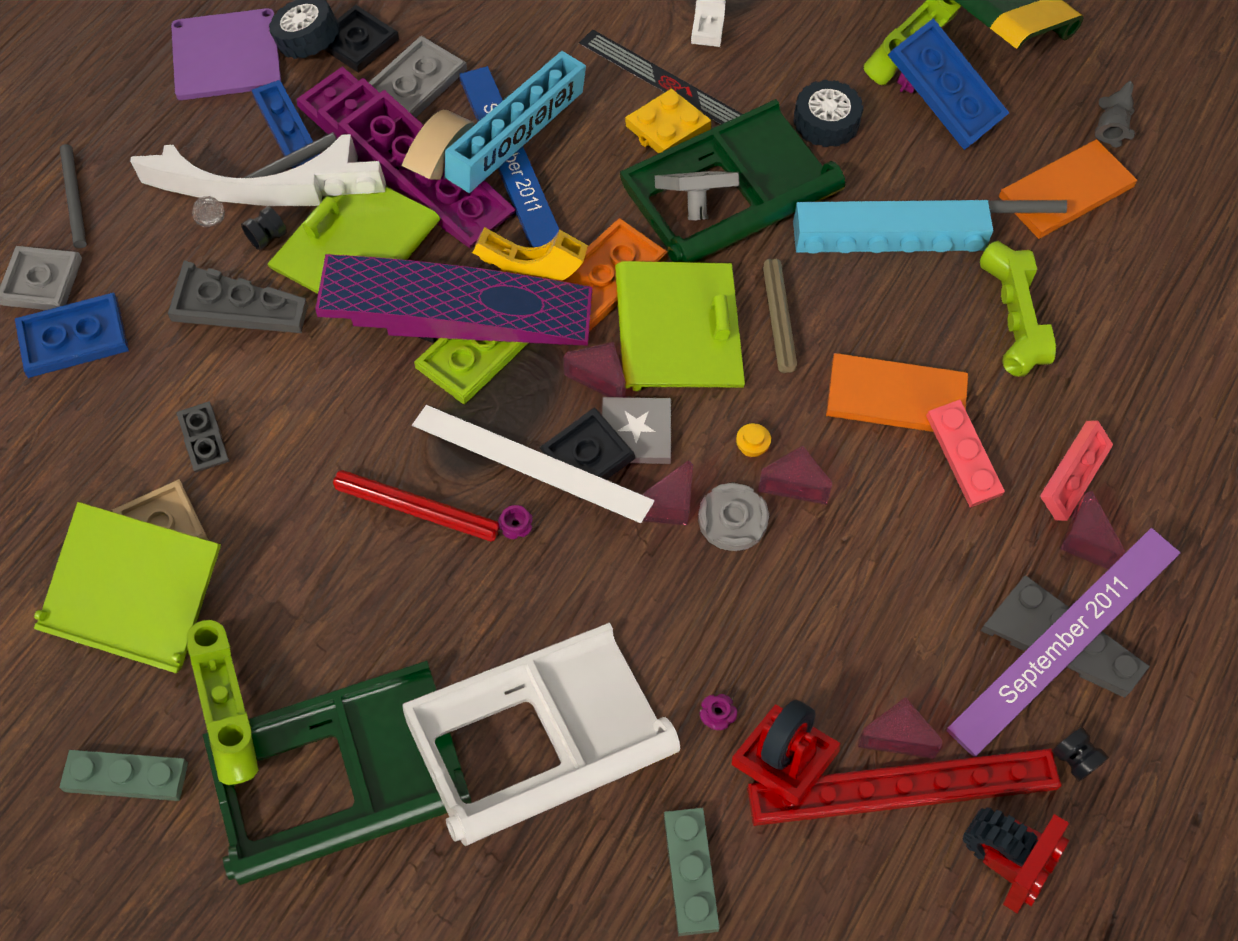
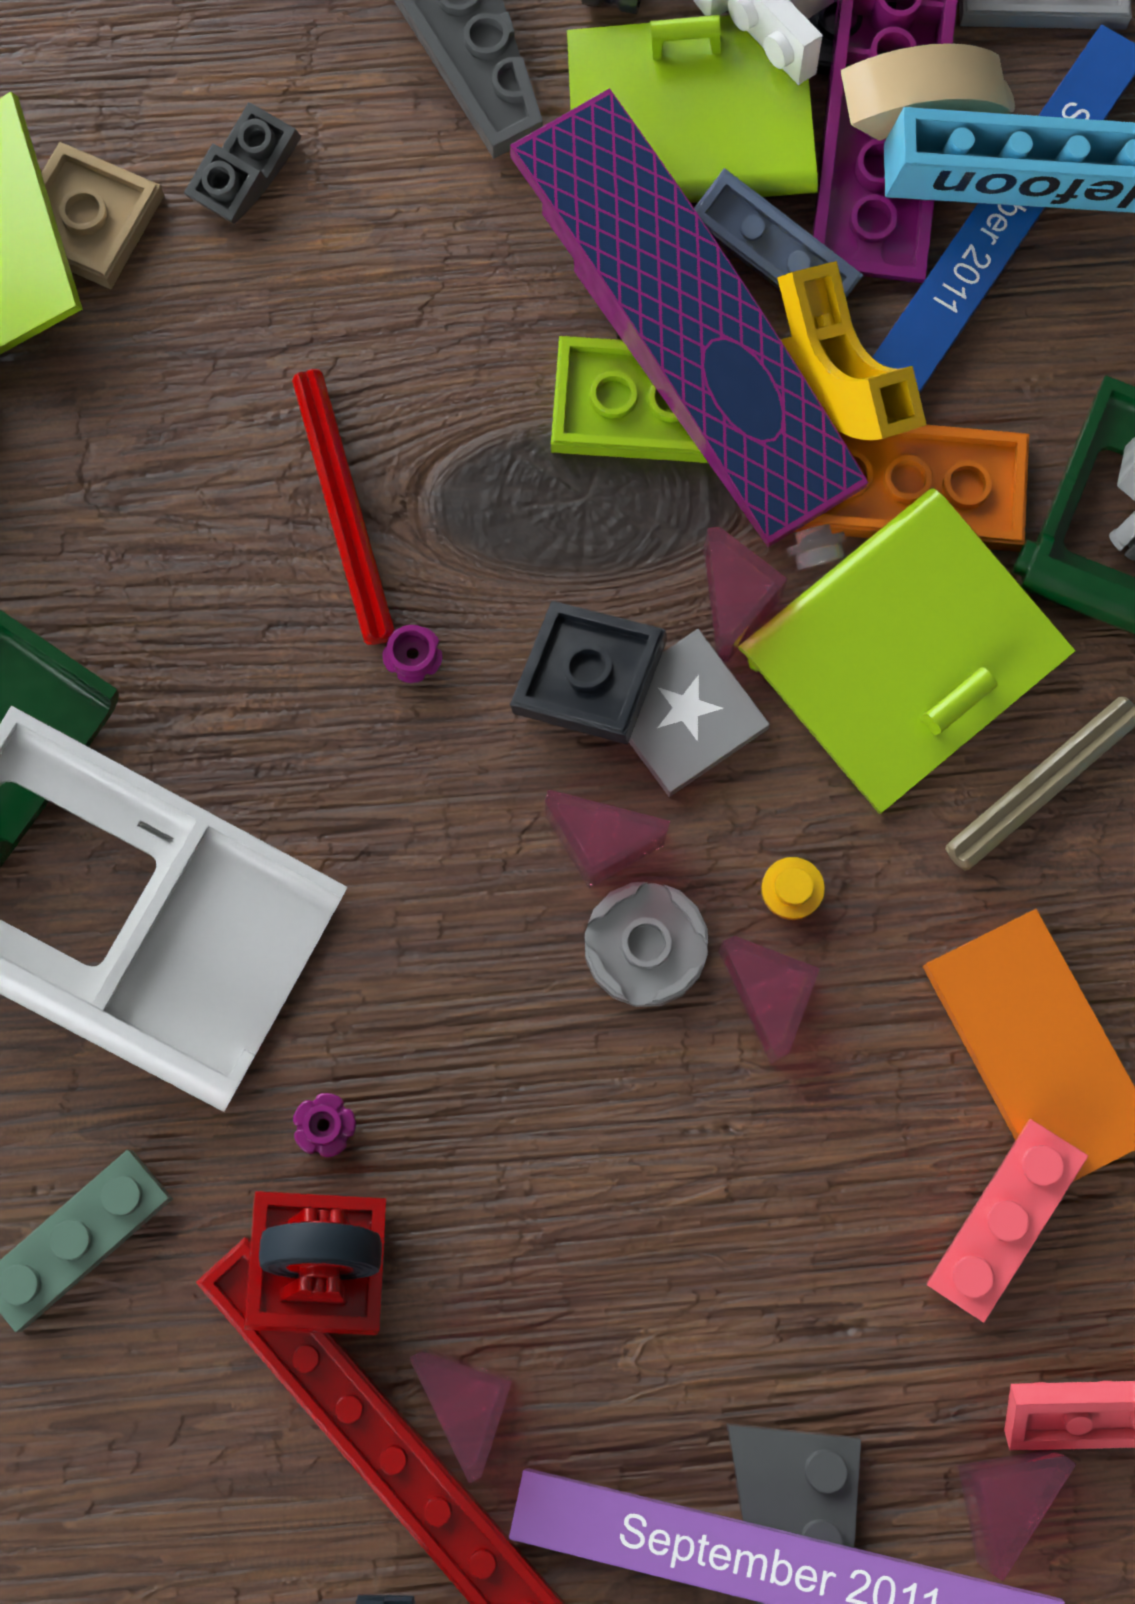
camera: 55 degrees right, 15 degrees up
(445, 248) = (763, 234): none -> sand blue tile
(534, 464) = (514, 616): white sticker -> none
(604, 326) = (817, 547): none -> clear plate

